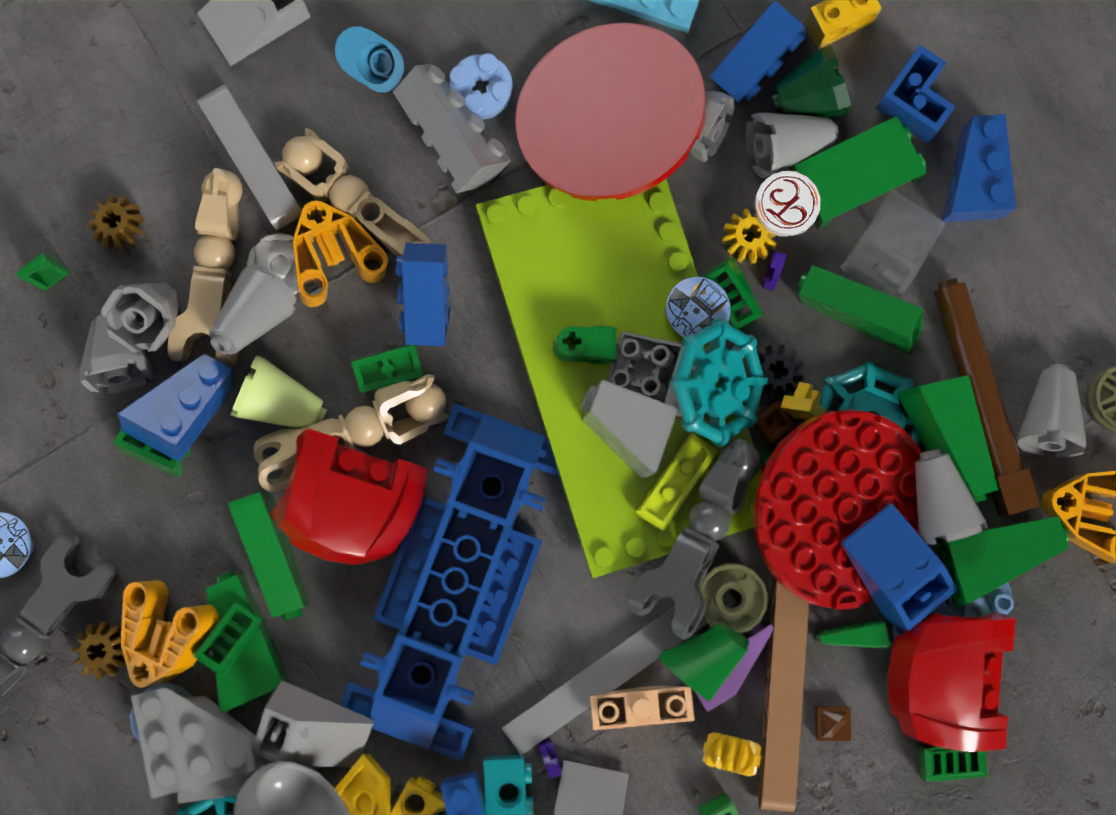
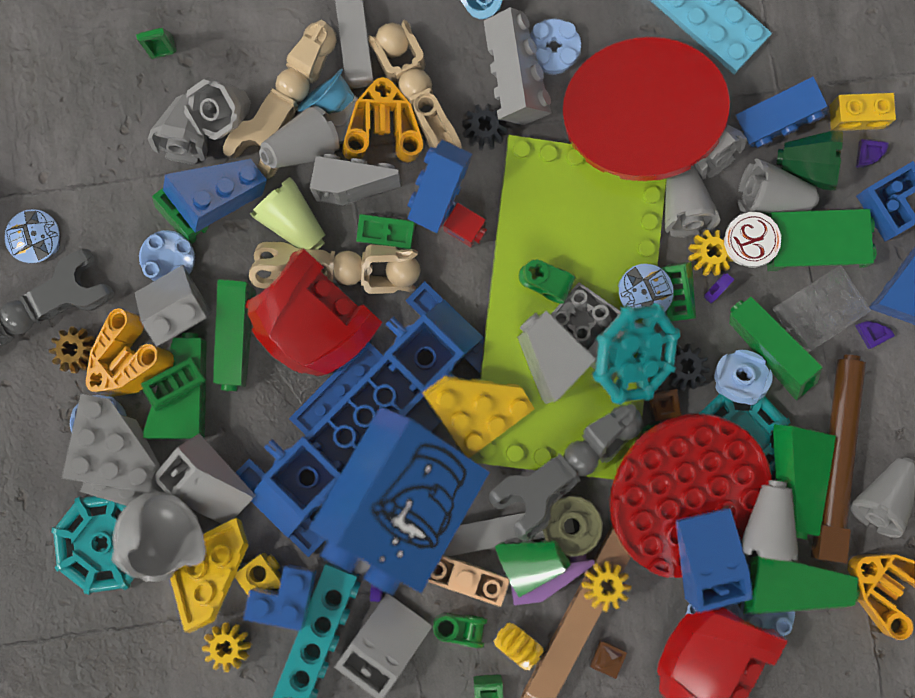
camera: 25 degrees right, 0 degrees up
(108, 214) = (224, 21): pearl gold gear -> none
(159, 502) = (164, 253): none -> light blue dish
(188, 554) = (170, 305): none -> light grey slope
(261, 247) = (330, 96): none -> dark azure piece
(323, 332) = (347, 181): none -> light grey slope
(451, 217) = (484, 117): none -> black gear
(471, 323) = (465, 225): none -> red brick
(533, 661) = (397, 503): none -> blue brick
(574, 519) = (477, 410): none -> yellow plate
(663, 763) = (462, 629): none -> green piece
(676, 481) = (569, 417): neon yellow tile -> none
(703, 196) = (689, 205): none -> light grey cone
(788, 656) = (615, 582): none -> yellow gear
(803, 403) = (696, 400): yellow tile -> none
(842, 372) = (743, 391): none -> light blue plate
(864, 634) = (663, 601): green slope -> none
(869, 54) = (870, 152): none -> dark purple tile
(959, 246) = (874, 333): none -> dark purple tile

